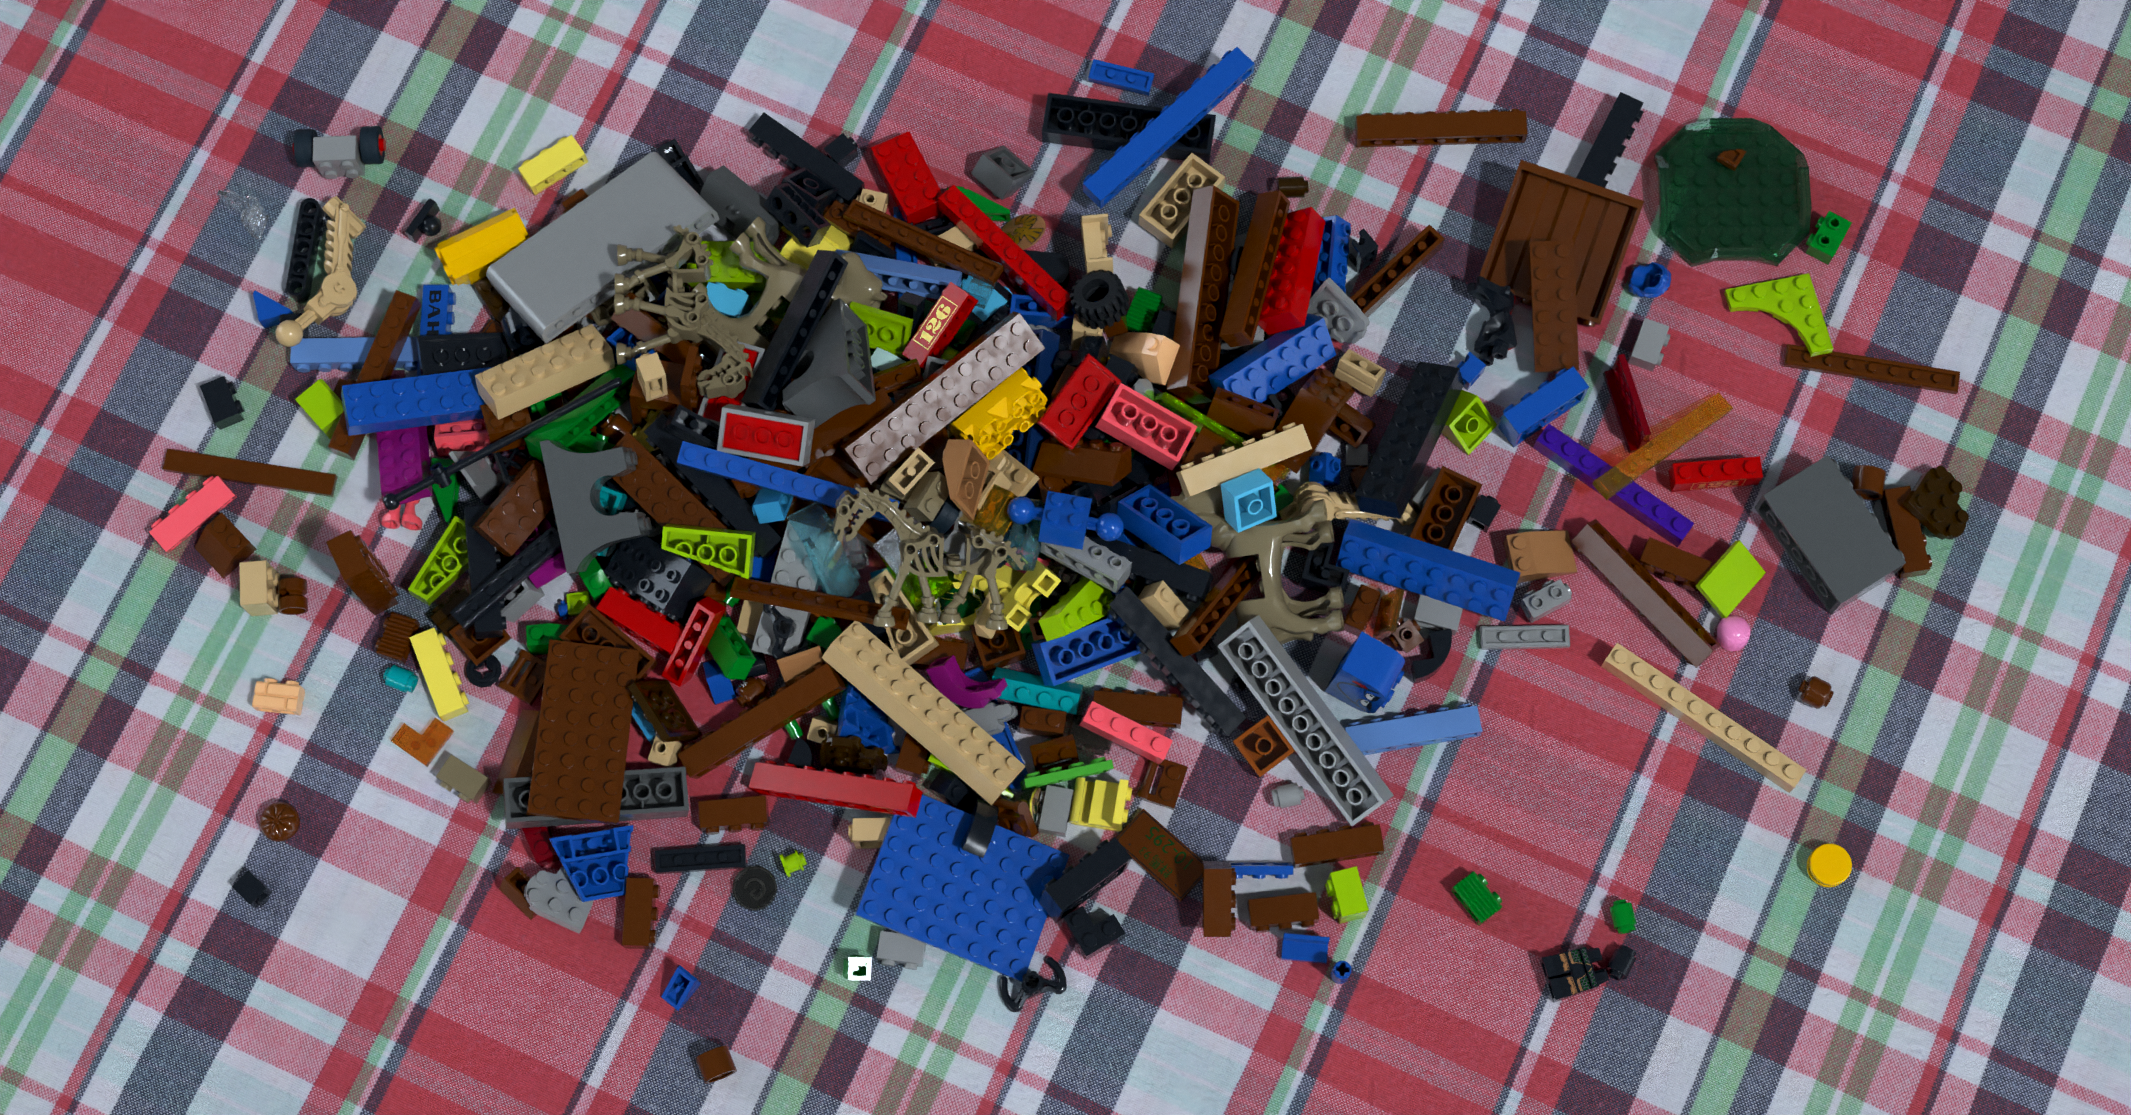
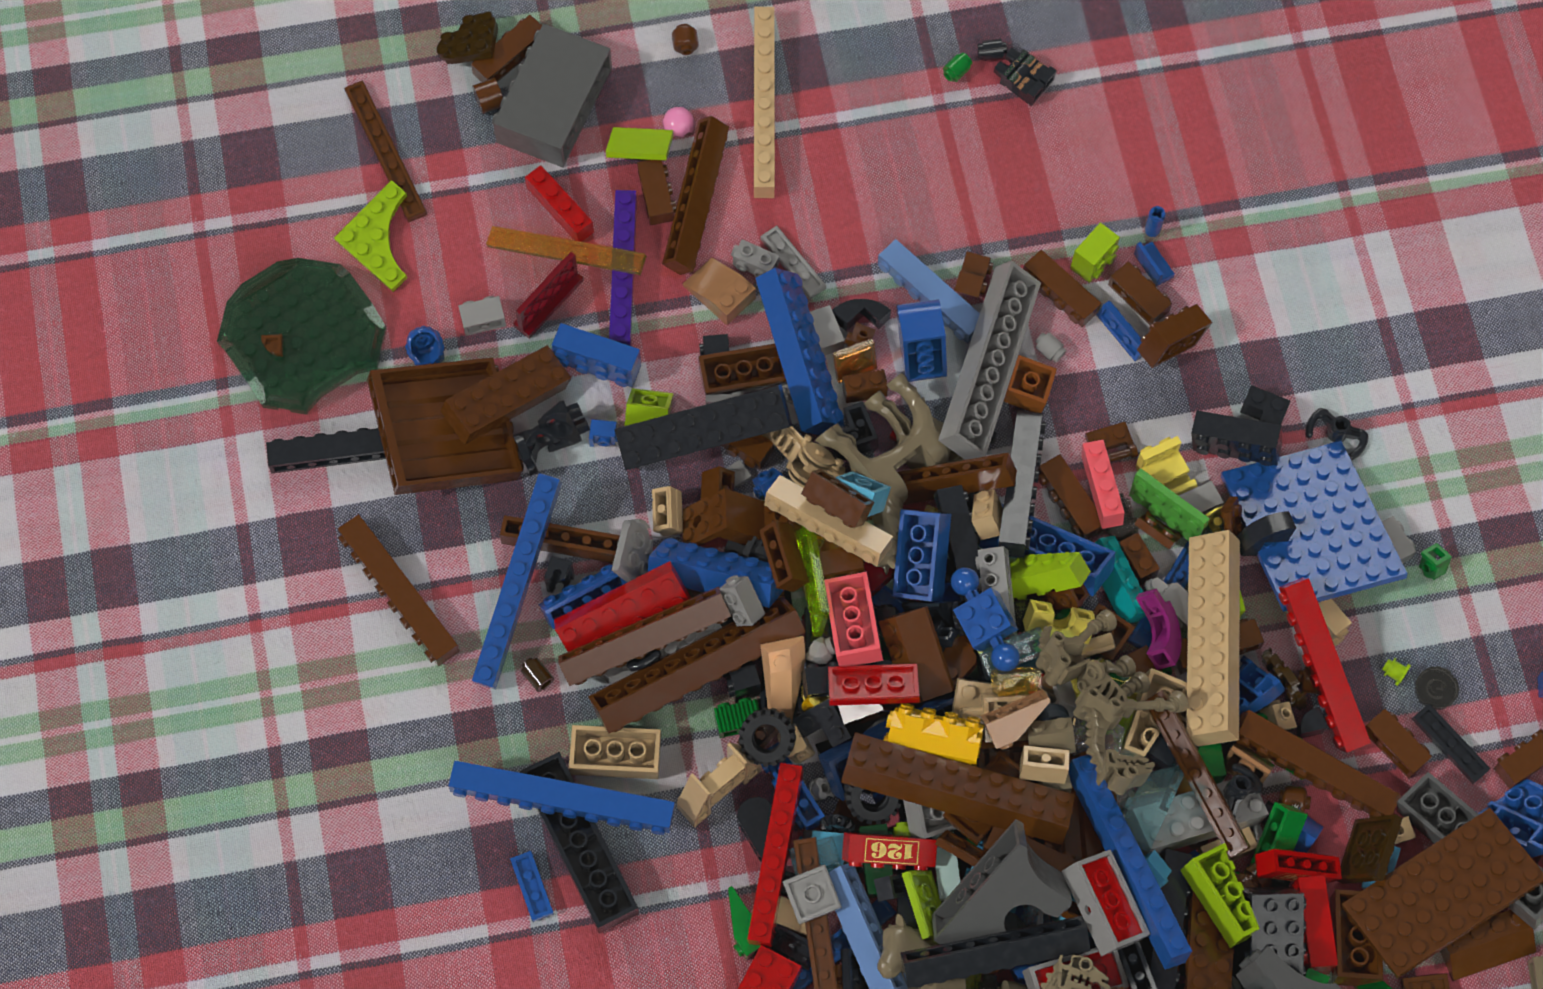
camera: 130 degrees left, 5 degrees down
(950, 250) = (812, 894): none -> light grey tile
(954, 792) = (1249, 586): black slope -> none
(1001, 172) = (694, 924): dark grey slope -> none
(1025, 229) = (738, 866): shield -> none
(1161, 855) = (1166, 405): reddish brown tile -> none
(1229, 352) = (742, 600): none -> light grey brick
(1252, 468) = (837, 498): none -> reddish brown brick
(1378, 211) = (517, 581): none -> blue brick
(1398, 771) = (973, 274): none -> reddish brown brick
(1477, 897) = (1022, 169): green brick -> none
(1828, 237) = (292, 240): green brick -> none

